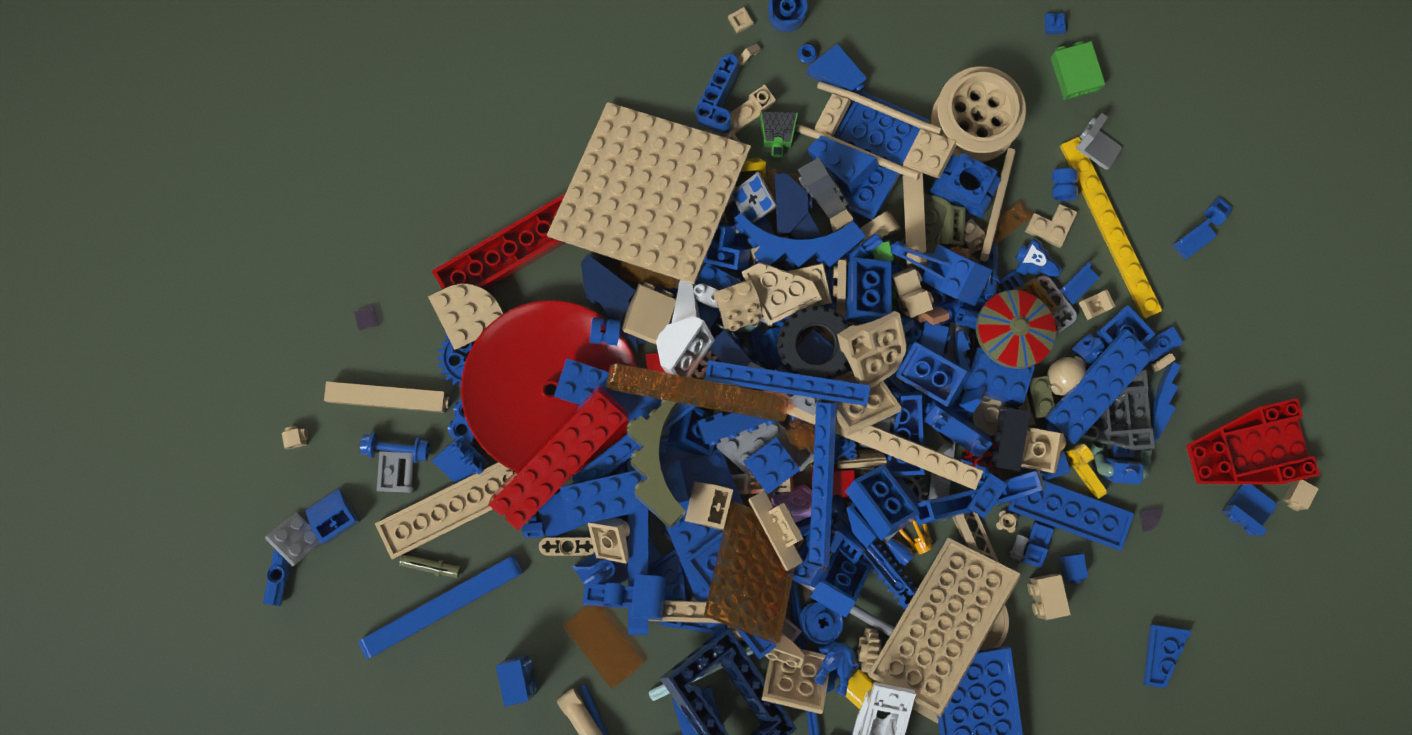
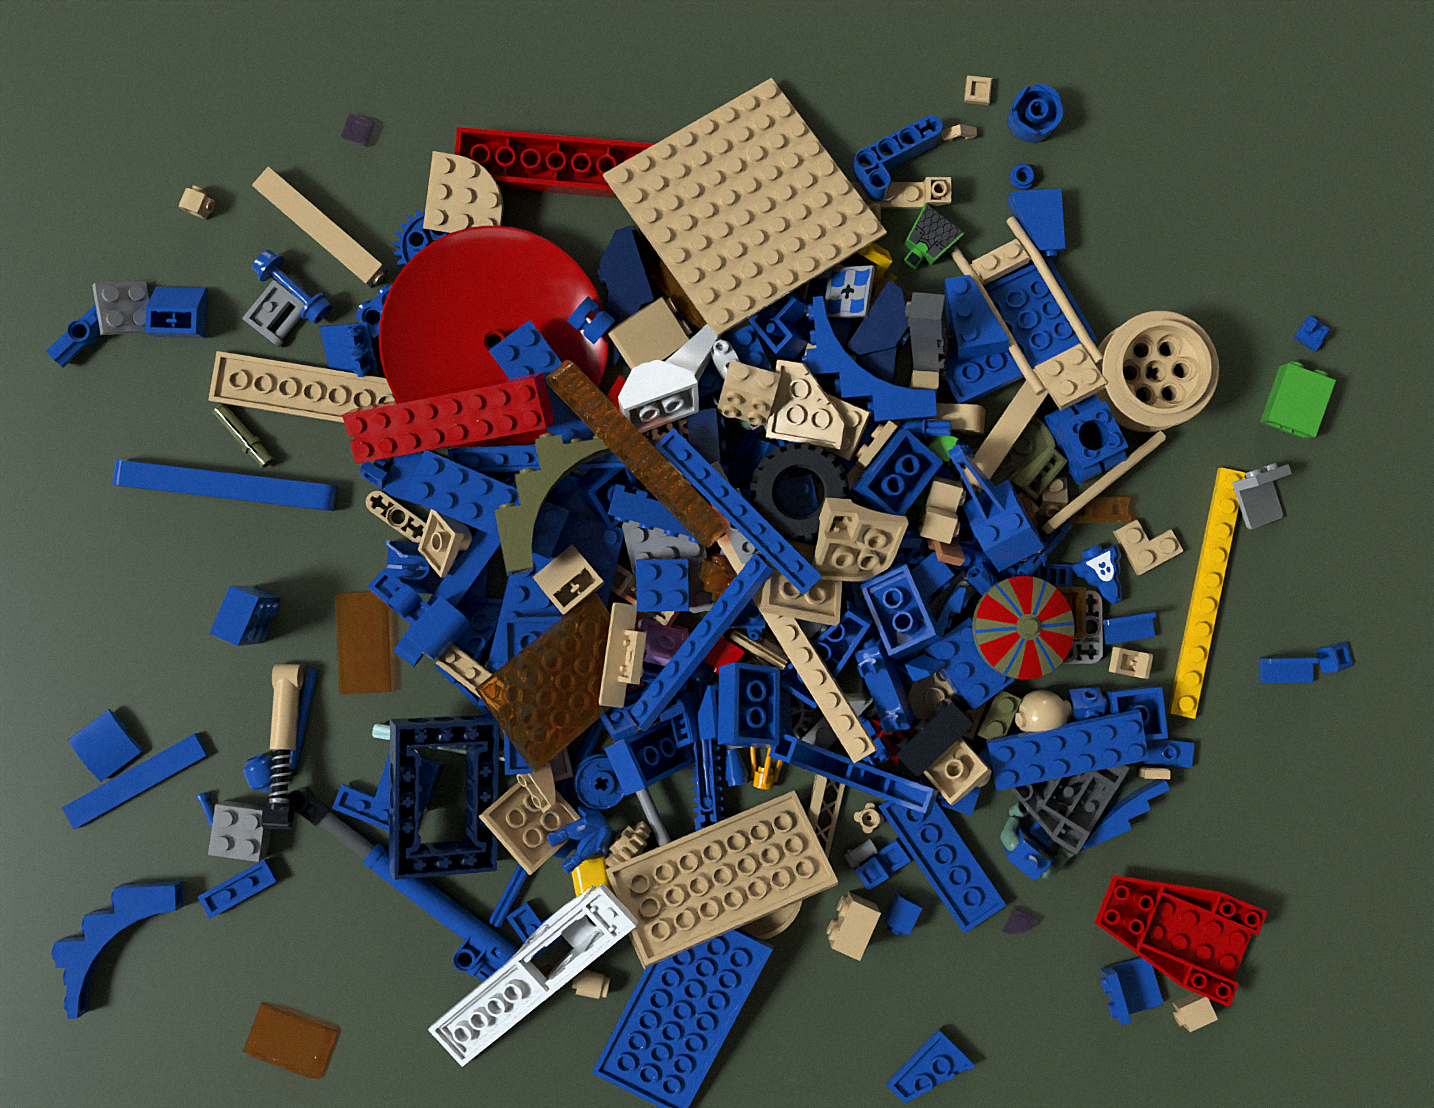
camera: 40 degrees right, 5 degrees up
(987, 495) = (864, 778): blue plate -> none
(1064, 184) = (1193, 510): blue wheel -> none
(1079, 457) = (991, 809): yellow beam -> none

